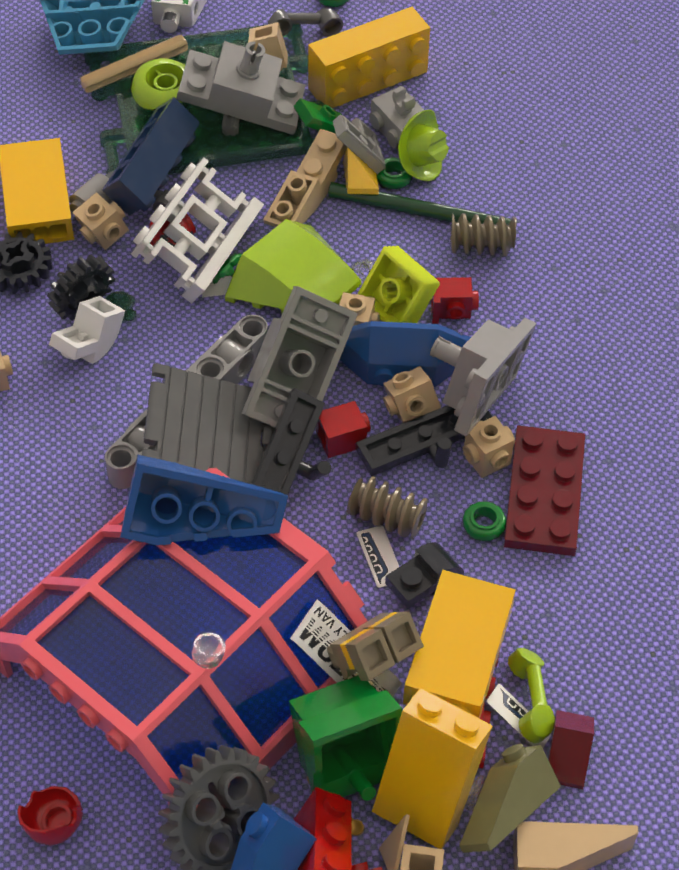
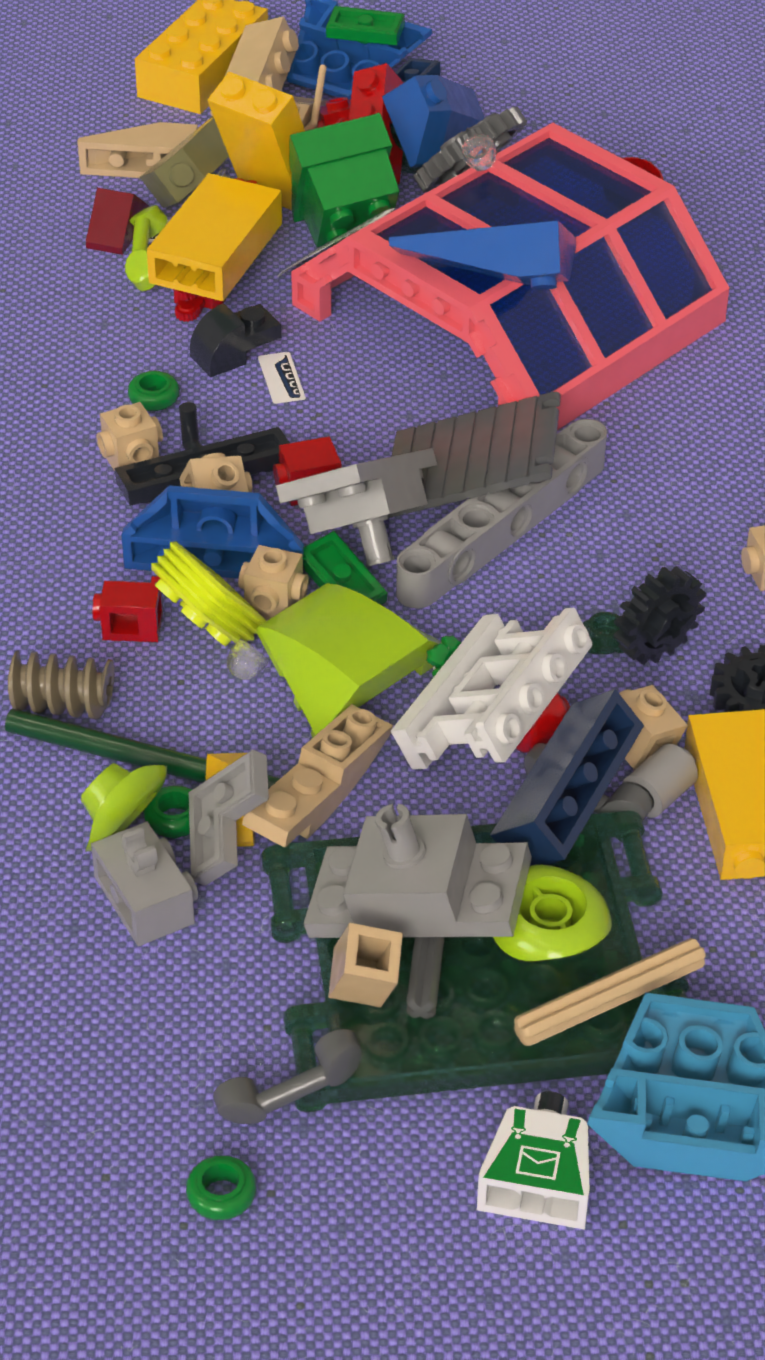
camera: 175 degrees left, 10 degrees down
(93, 331) = (627, 571): white brick -> none
(288, 445) = (379, 432): black plate -> none
(316, 116) = (278, 871): green plate -> none
(368, 57) = (181, 968): yellow brick -> none
(375, 645) = (307, 203): dark tan hips -> none
(387, 507) = (265, 389): dark tan piece -> none
(482, 368) = (114, 457): light grey brick -> none
(545, 491) = (64, 417): dark red plate -> none

